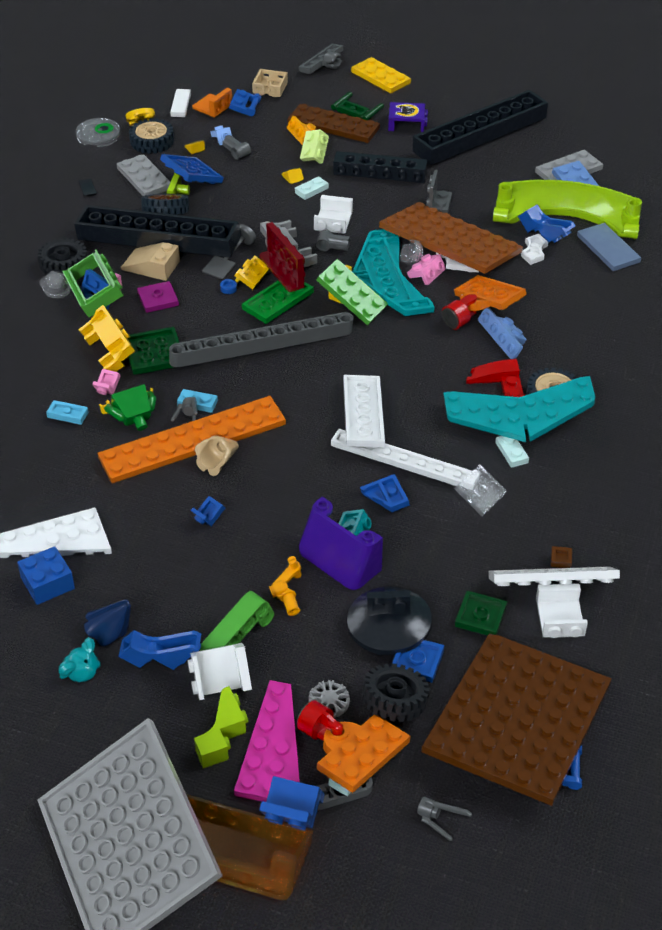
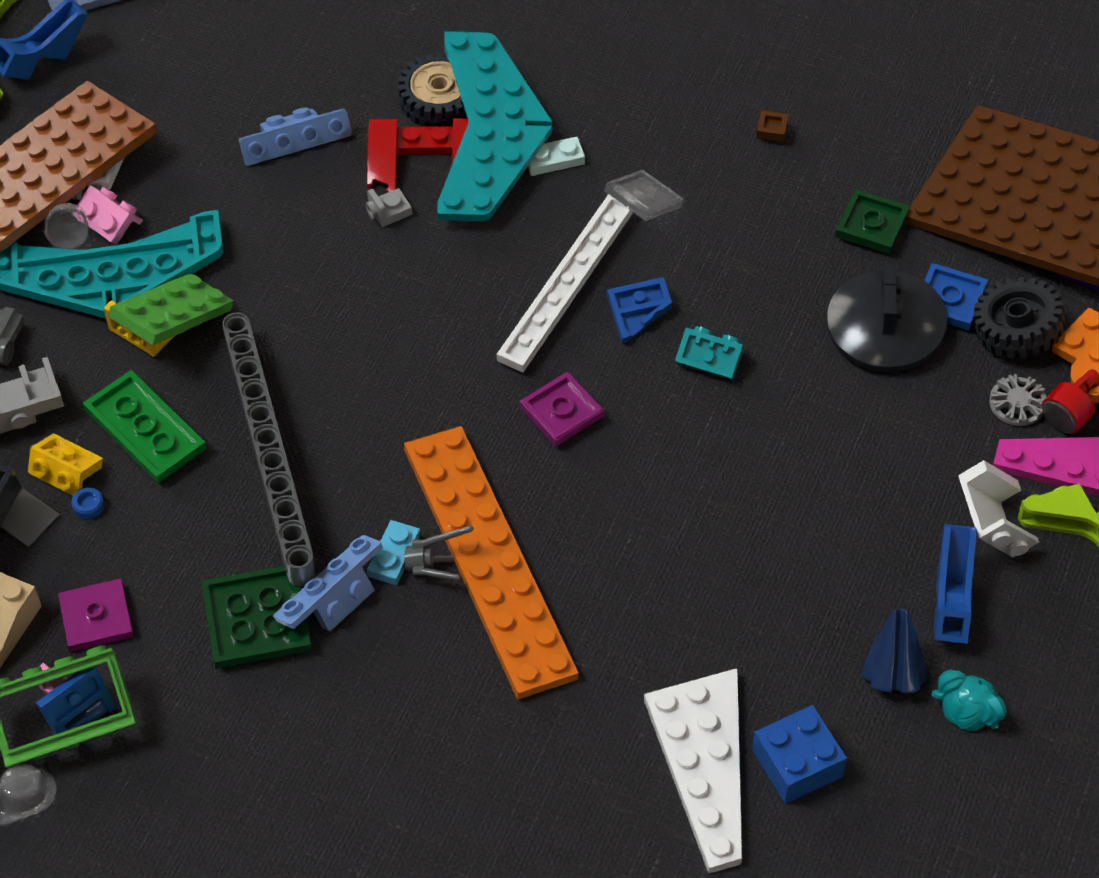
camera: 85 degrees left, 10 degrees up
(67, 412) = (405, 747): medium azure plate -> none
(107, 382) = (336, 686): bright pink bracket -> none
(116, 341) = (229, 669): yellow bracket -> none
(131, 406) = (412, 640): green torso -> none
(165, 375) = (334, 590): none -> medium blue bracket
(208, 511) = (666, 533): blue bracket -> none
(214, 453) = (544, 514): tan hat -> none
(239, 621) = (908, 490): bright green beam -> none
(280, 589) = (824, 444): light orange pin -> none
(283, 259) = (76, 391): dark red bracket -> none
(302, 462) = (561, 408): none -> magenta plate
(337, 551) = (764, 370): dark purple windscreen -> none
(363, 411) = (463, 317): white plate -> none
(452, 377) = (388, 207): none -> light grey bracket
(478, 295) = (214, 141): orange plate -> none
(533, 252) = (70, 70): white tile -> none
(560, 575) = (815, 133): white plate -> none
(560, 610) = (870, 142): white panel -> none

